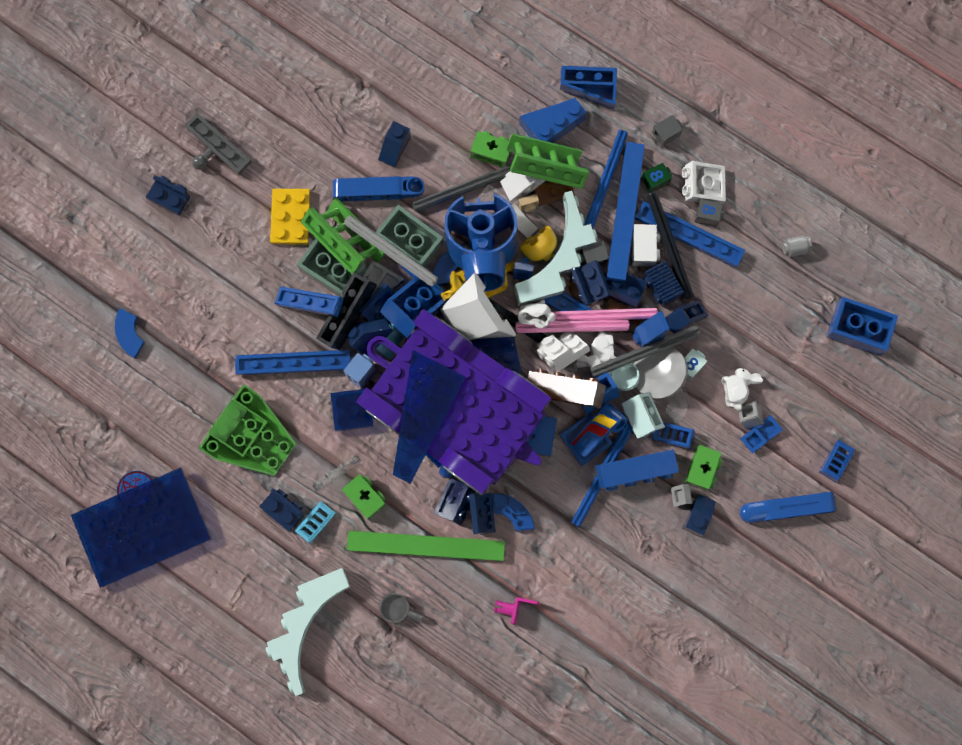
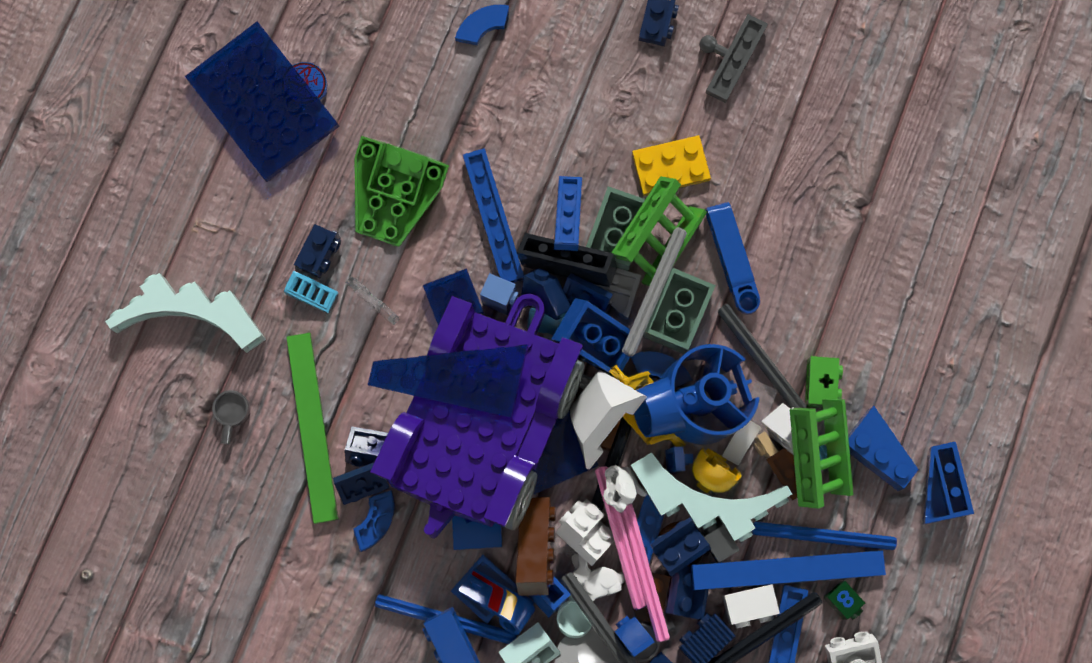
camera: 80 degrees right, 0 degrees up
(367, 507) = (353, 327): bright green brick -> none
(394, 144) = (795, 263): dark blue slope -> none
(512, 609) = (258, 549): dark pink bracket -> none
(667, 130) = (912, 600): dark grey brick -> none

